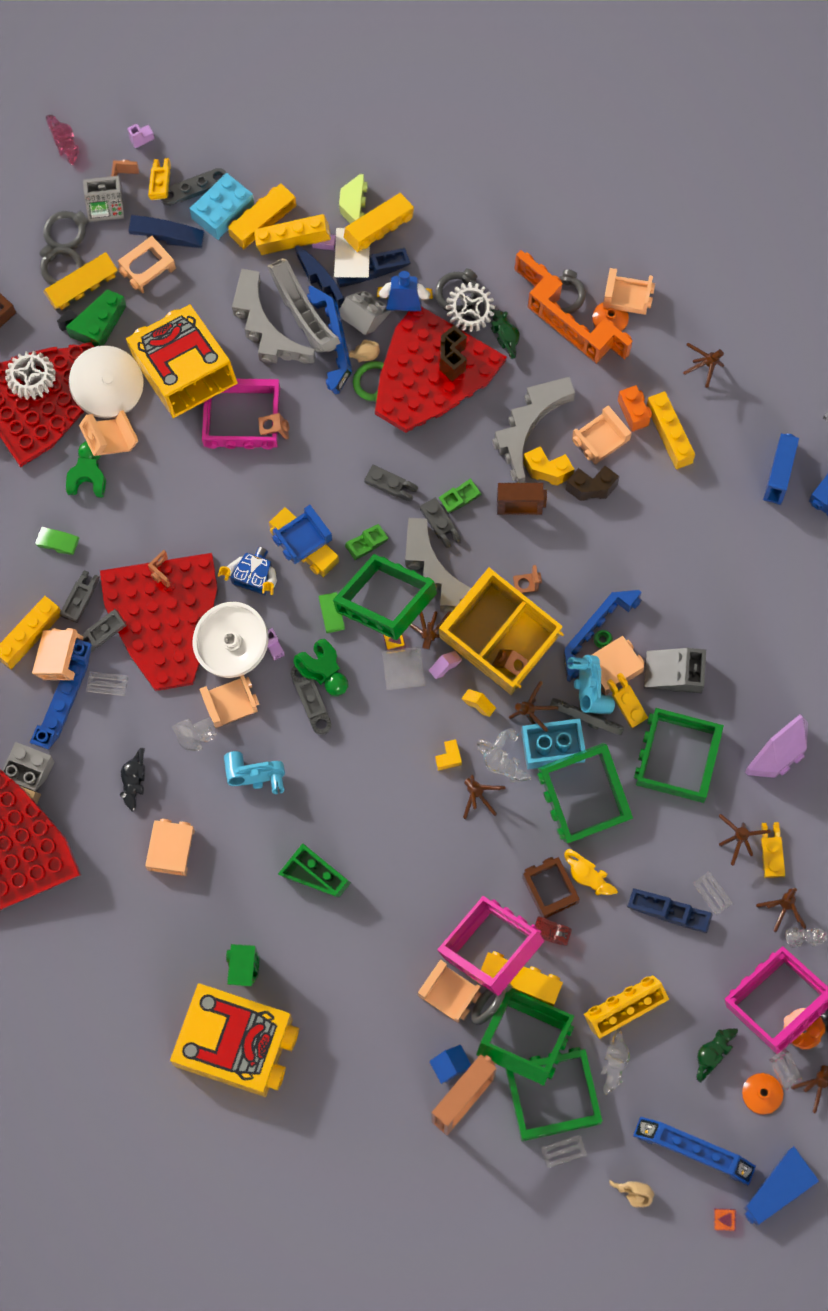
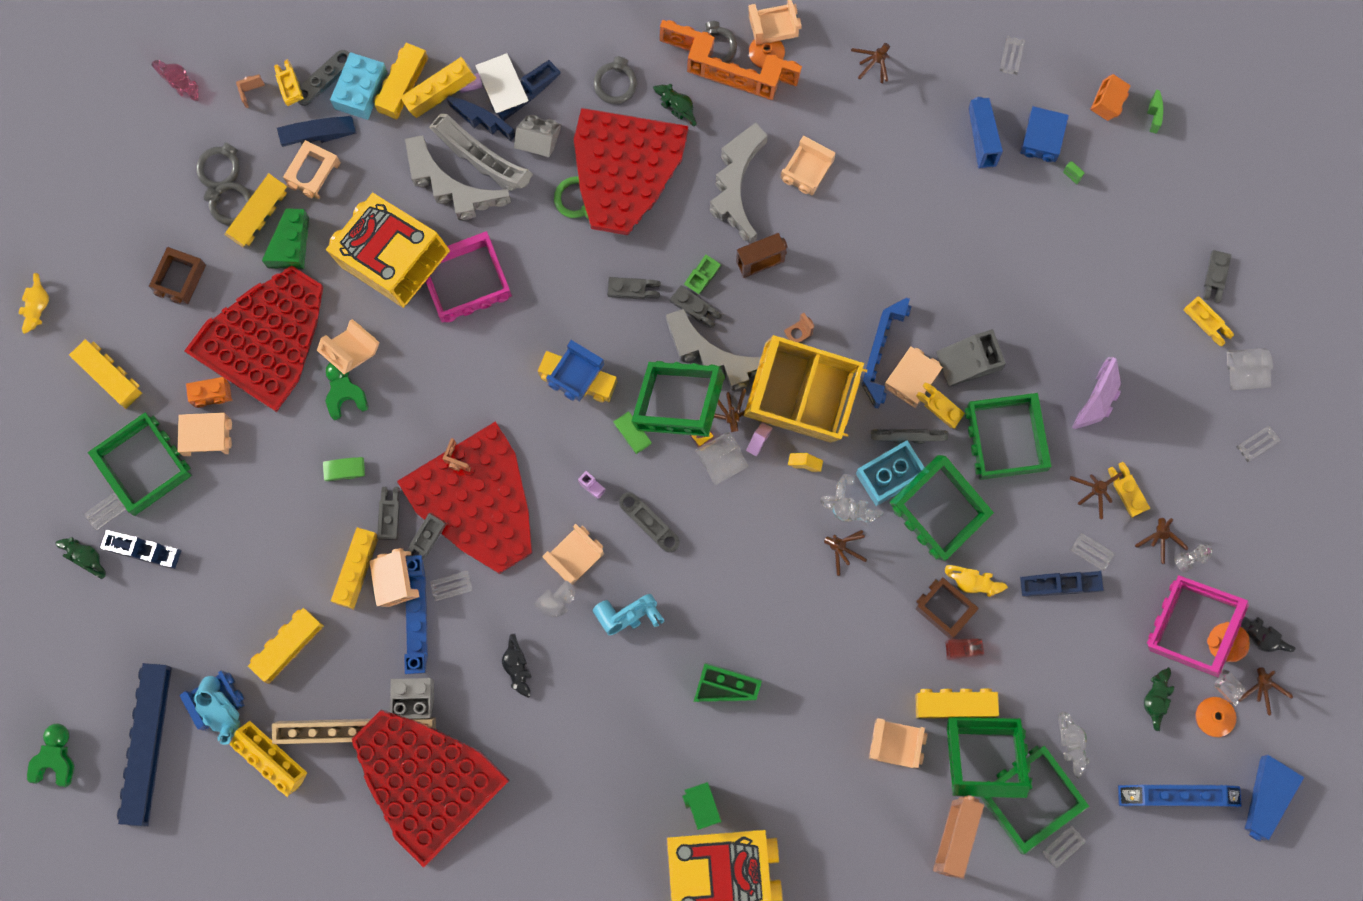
camera: 20 degrees left, 5 degrees up
(26, 367) = (233, 322): white gear -> none
(65, 319) = (258, 252): black slope -> none
(103, 198) = (242, 122): light grey slope -> none
(105, 381) = (323, 298): white dish -> none
(140, 136) = (250, 47): lavender piece -> none
(169, 847) = (580, 717): light nougat panel -> none
(230, 639) = (551, 498): white dish -> none
(251, 572) = (542, 425): torso -> none
(279, 425) = (507, 275): nougat bracket -> none
(322, 669) = (649, 488): green piece -> none
(336, 378) = (539, 209): blue slope -> none
(353, 199) = (481, 34): yellowish green slope -> none
(365, 351) = (555, 172): tan piece -> none
(367, 542) = (635, 352): bright green slope -> none
(378, 222) = (514, 44): yellow brick -> none
(404, 293) = (568, 103): blue torso -> none
(450, 1063) = (927, 810): blue piece -> none
(451, 360) = (642, 151): dark brown brick -> none
(451, 758) = (802, 524): yellow piece -> none
(466, 300) = (629, 89): white gear -> none
(470, 924) = (887, 676): dark pink window -> none
(480, 1019) = (945, 720): dark grey piece -> none
(506, 660) = (816, 412): nougat bracket -> none
(528, 709) = (856, 450): reddish brown plant -> none
(553, 471) = (779, 218): yellow brick -> none
(586, 487) = (814, 220): dark brown brick -> none
(590, 685) = (902, 405): medium azure piece -> none
(605, 634) = (894, 351): green plate -> none
(626, 1006) = (1063, 690): yellow brick -> none
(634, 408) = (826, 128): orange brick -> none
(639, 1193) = (1148, 857): tan piece -> none
(670, 430) = (868, 136): yellow brick -> none
(725, 1219) = (1233, 847): tile -> none

